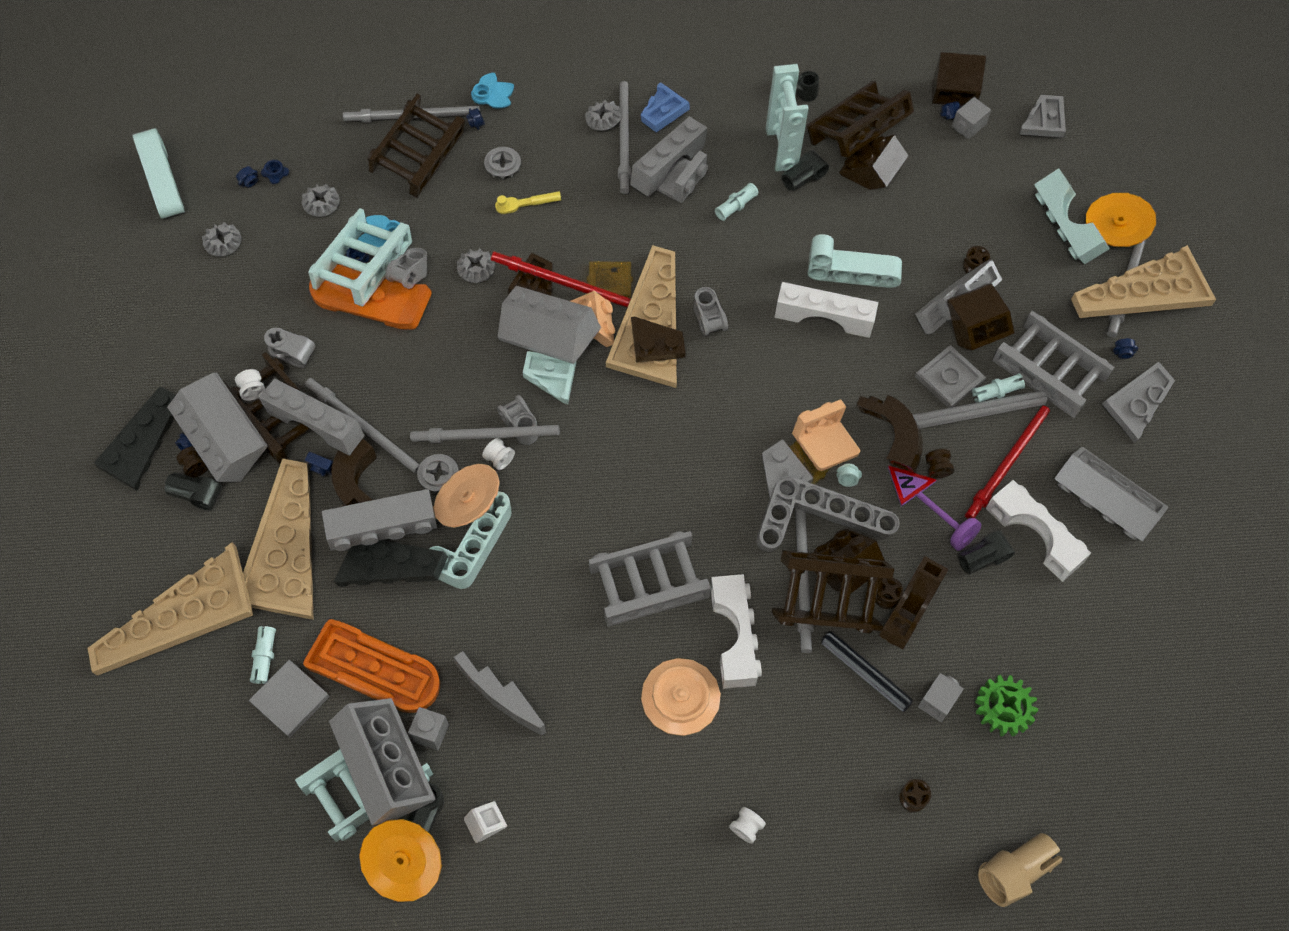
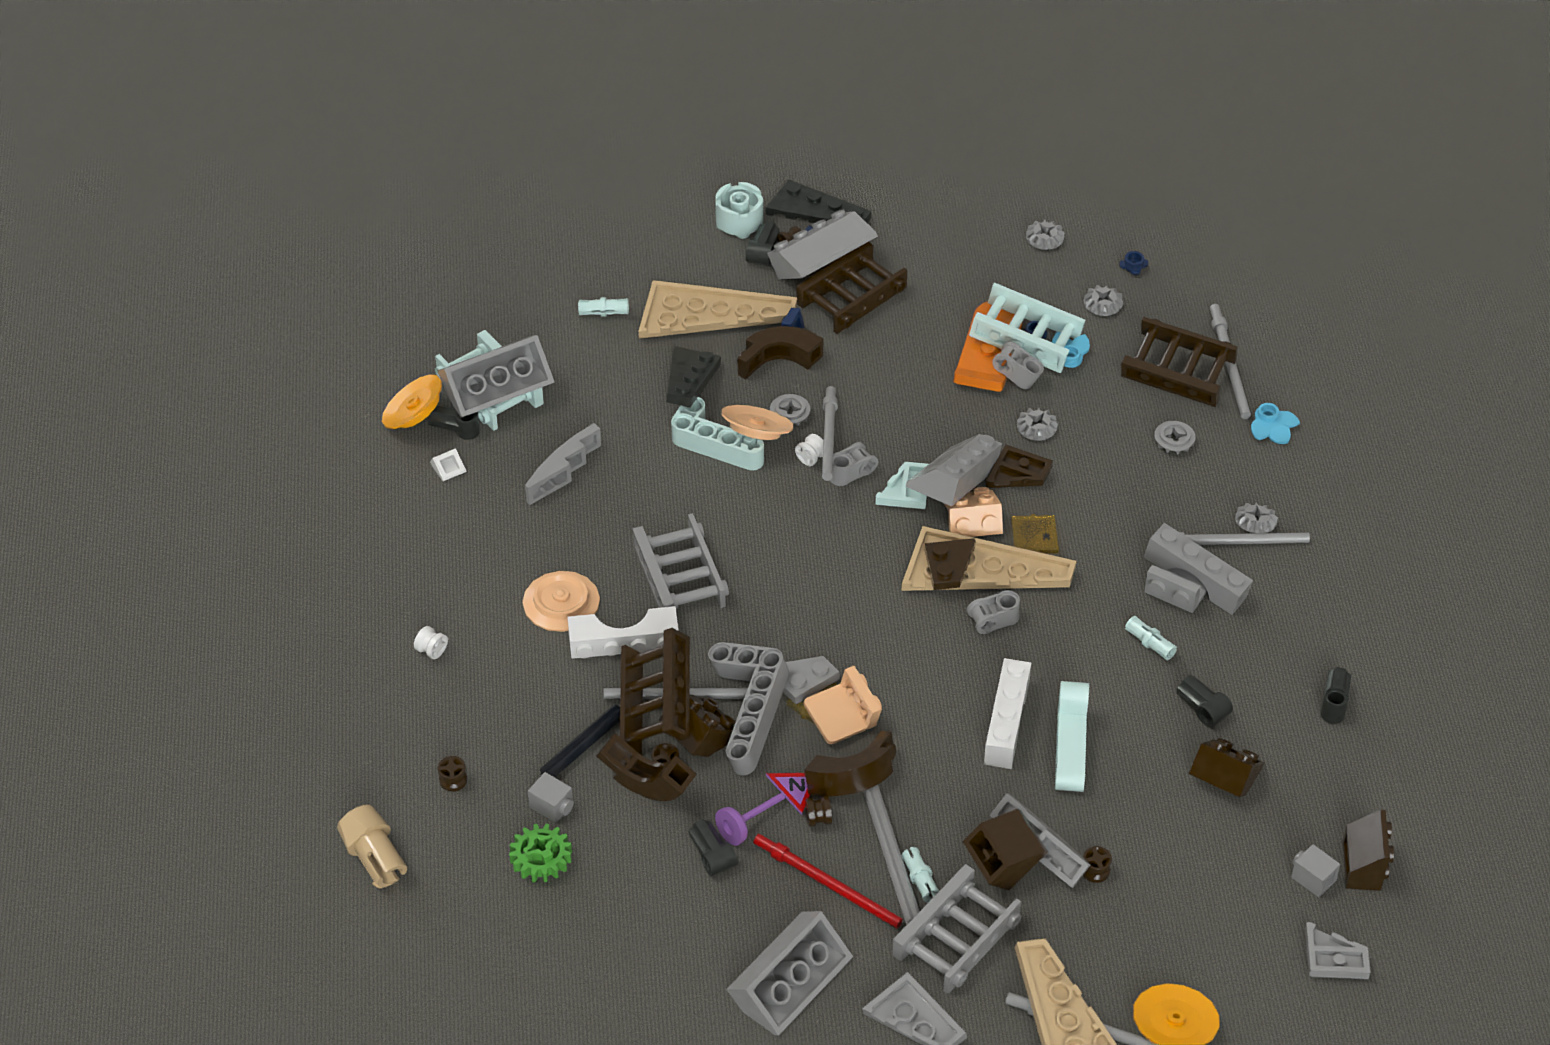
camera: 90 degrees right, 15 degrees down
(138, 509) = (739, 209): none -> light aqua brick
(158, 173) = (1112, 173): light aqua beam -> none
(183, 612) = (641, 252): tan wing -> none
(247, 177) = (1121, 243): dark blue plate -> none
(250, 384) = (867, 260): white wheel -> none
(289, 346) = (920, 290): light grey piece -> none
(289, 698) = (564, 329): light grey tile -> none
(328, 397) = (868, 327): light grey bar -> none
(332, 425) = (819, 313): light grey arch -> none
(373, 667) = (590, 380): orange piece -> none
(379, 520) = (724, 358): light grey slope -> none
(428, 728) = (530, 416): light grey brick -> none
(475, 118) = (1231, 410): dark blue plate -> none
(511, 204) = (1121, 448): light yellow piece -> none
(515, 263) = (1030, 445): red bar -> none
(663, 108) = (1275, 570): medium blue wing -> none
(785, 117) = (1272, 660): light aqua fence -> none
(848, 475) = (803, 732): light aqua plate -> none
(867, 128) = (1283, 745): dark brown fence -> none
(950, 109) = (1328, 847): dark blue plate -> none
(950, 377) = (935, 833): light grey tile -> none
(1063, 550) = (714, 917): white arch -> none
(1084, 238) = (1141, 969): light aqua arch -> none
(1125, 348) = (987, 1008): dark blue plate -> none

